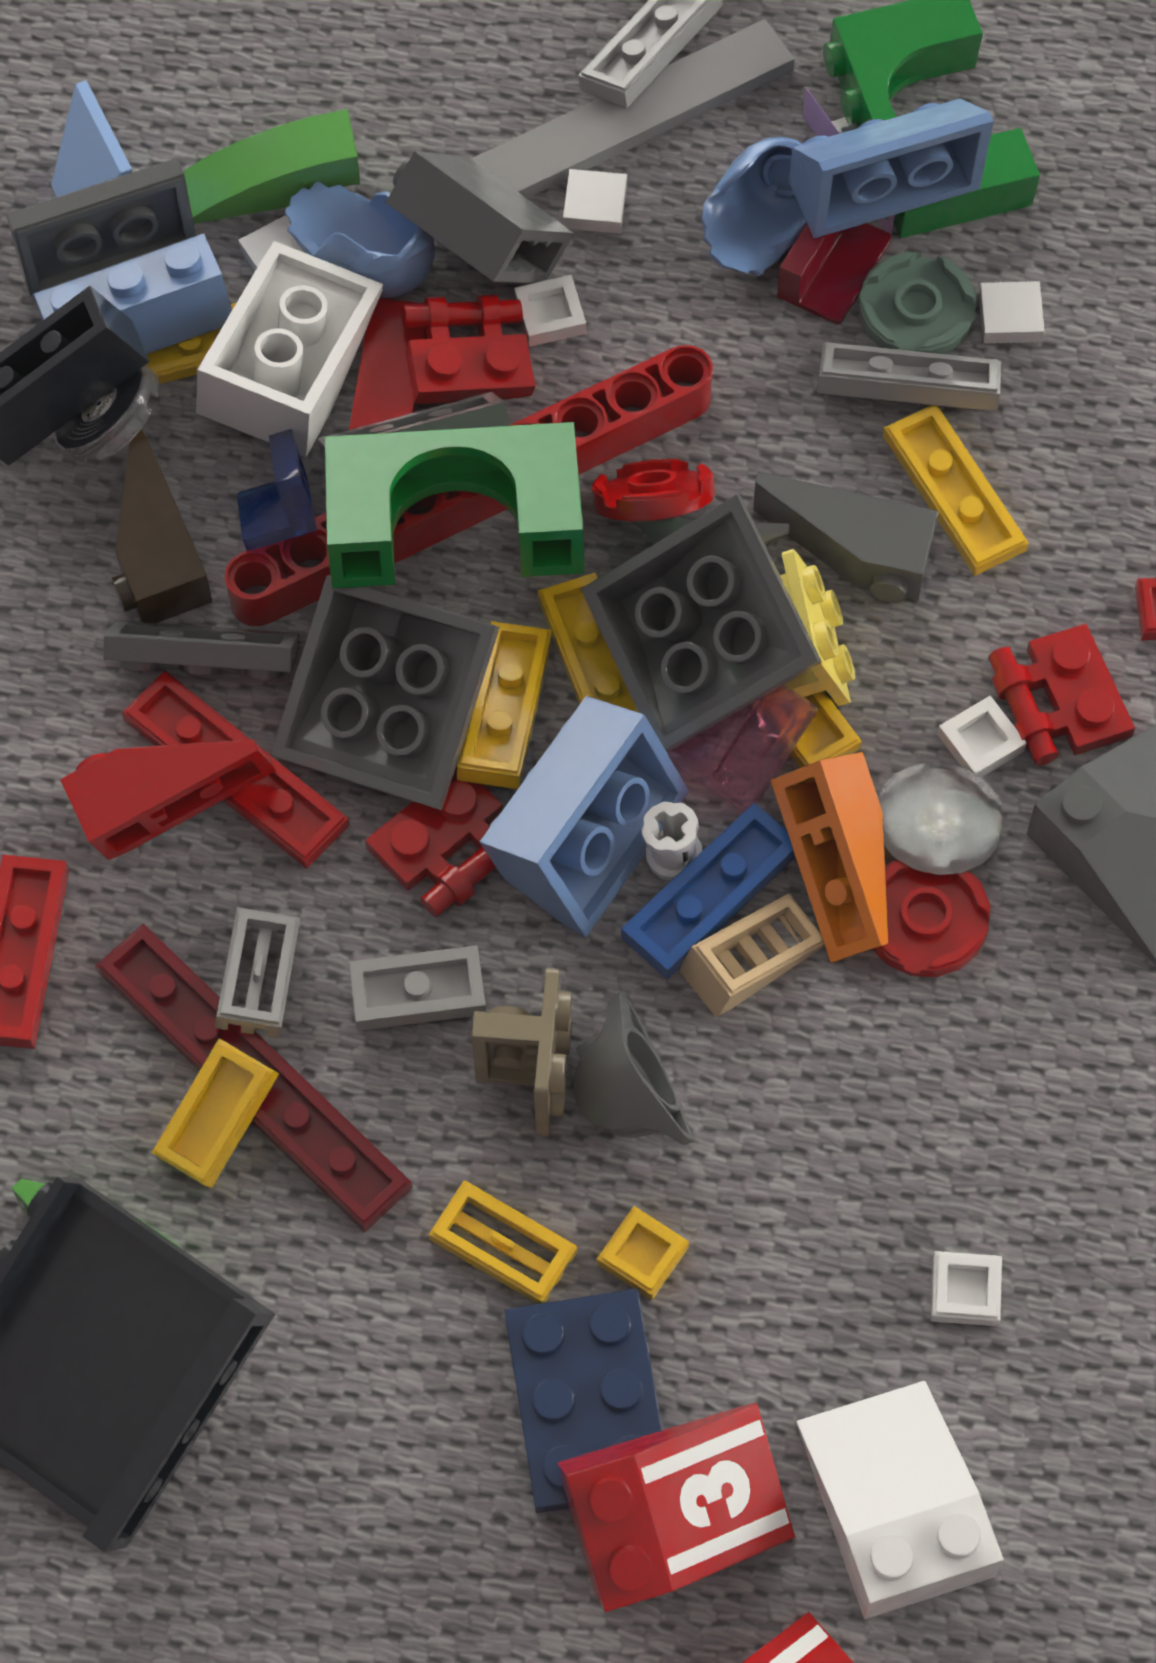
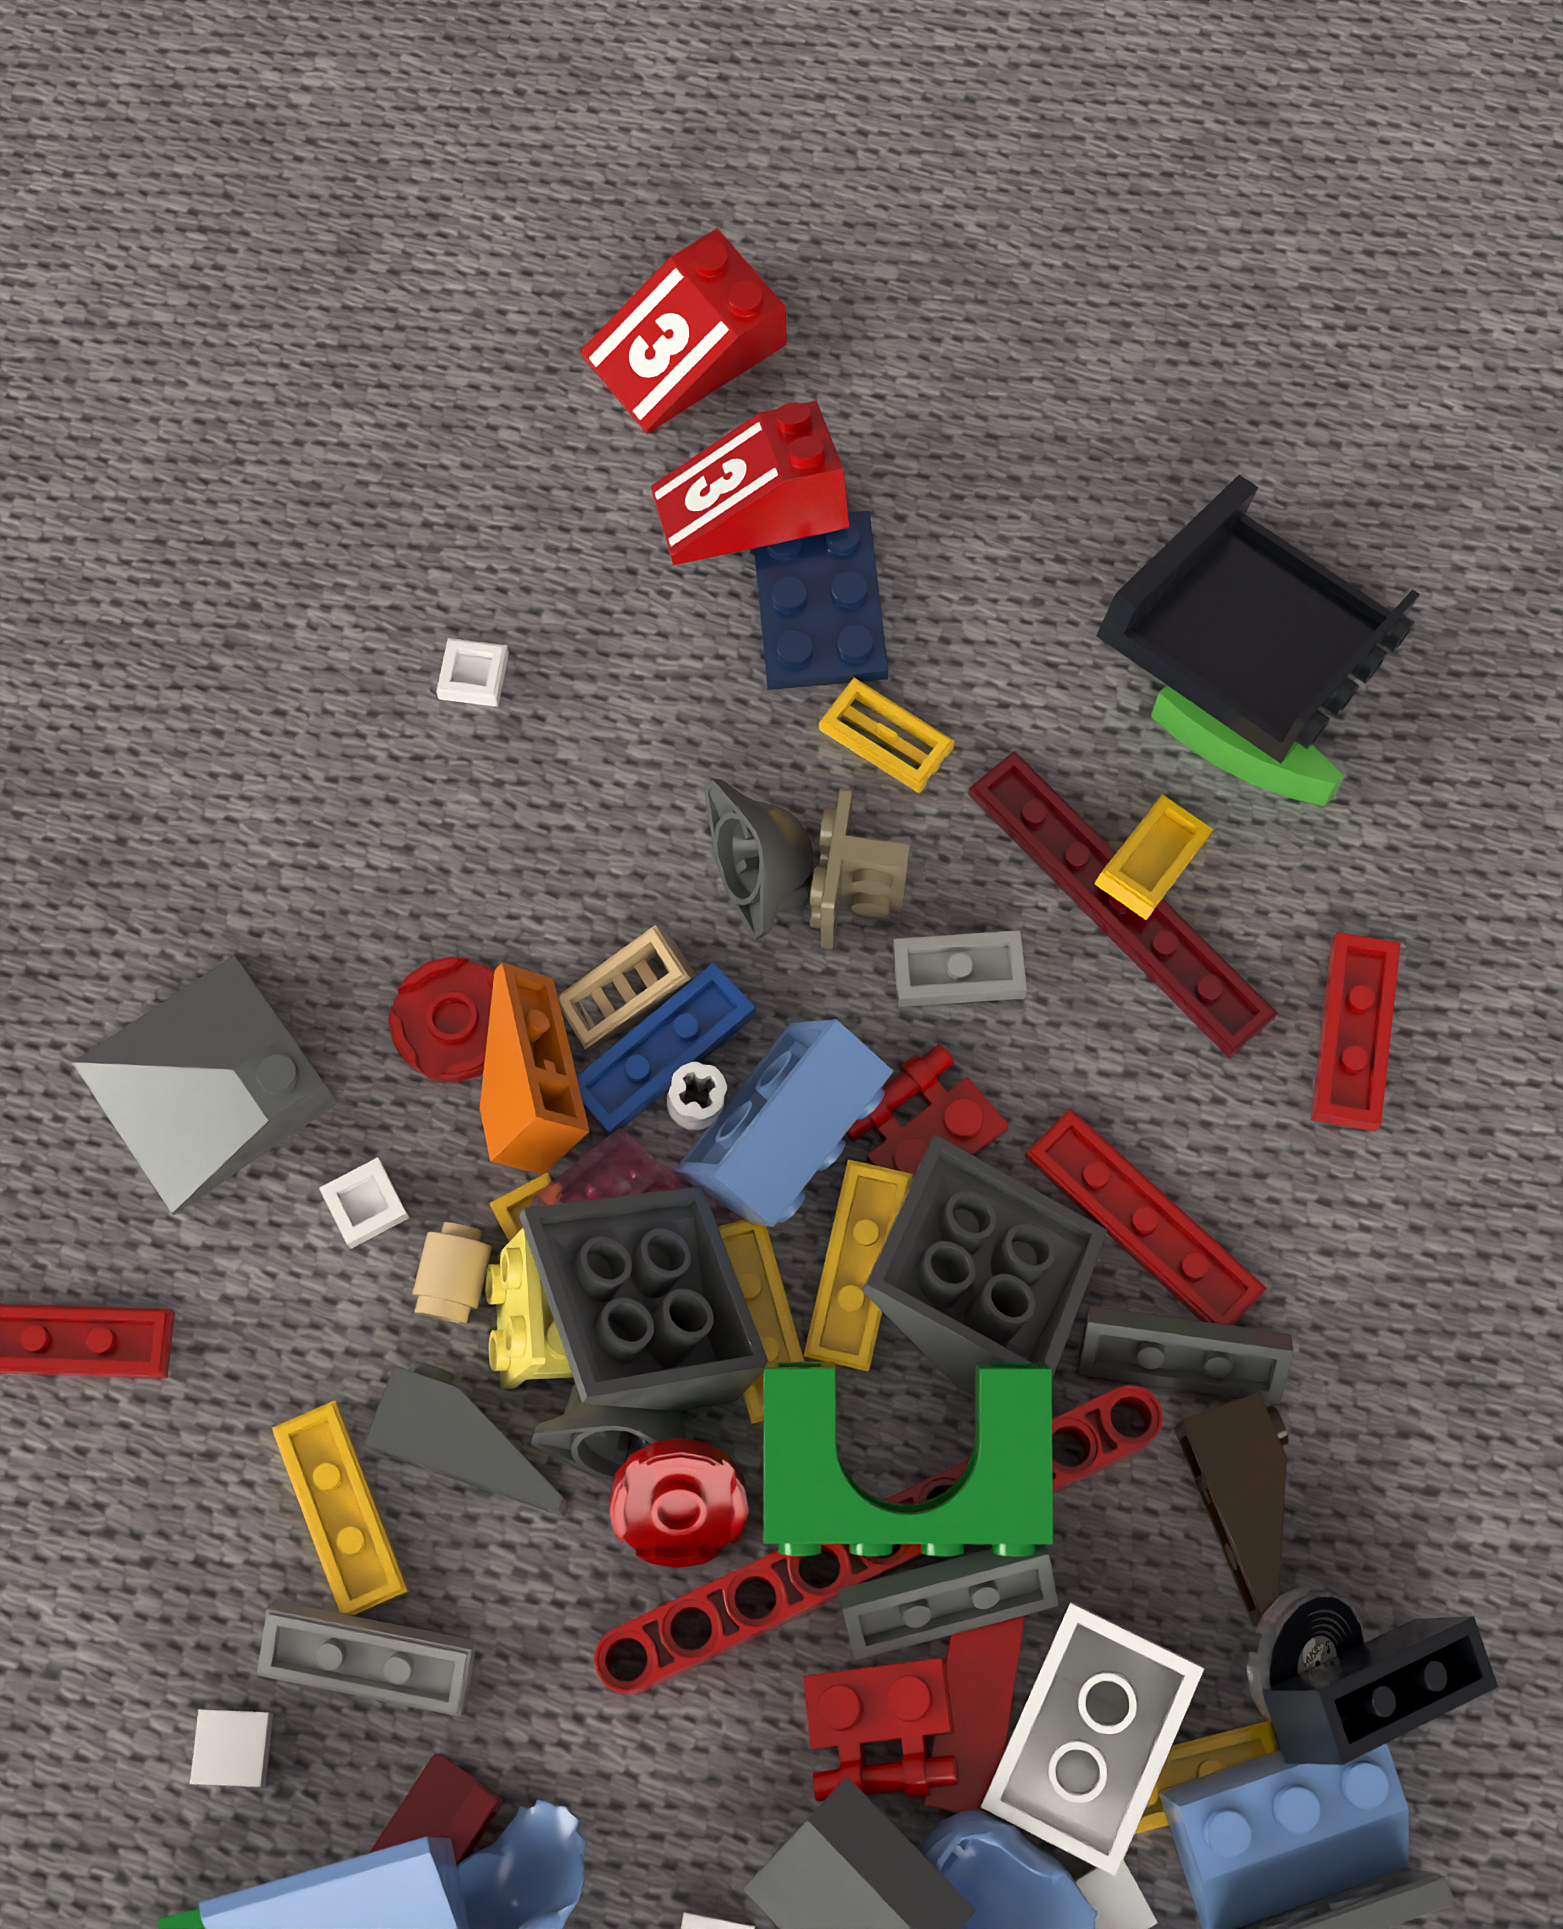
camera: 175 degrees left, 5 degrees up
(147, 790) = (1230, 1181): red slope -> none
(250, 1016) = (1109, 1046): light grey tile -> none
(282, 506) = (1104, 1516): clear blue panel -> none
(551, 310) = (777, 1791): white tile -> none
(642, 1252) = (759, 719): yellow tile -> none
(886, 674) = (451, 1273): none -> tan brick
(899, 1499) = (559, 496): white slope -> none
(916, 319) = (368, 1768): sand green tile -> none
(940, 818) = (421, 1110): clear tile -> none
(1077, 686) = (253, 1253): red plate -> none

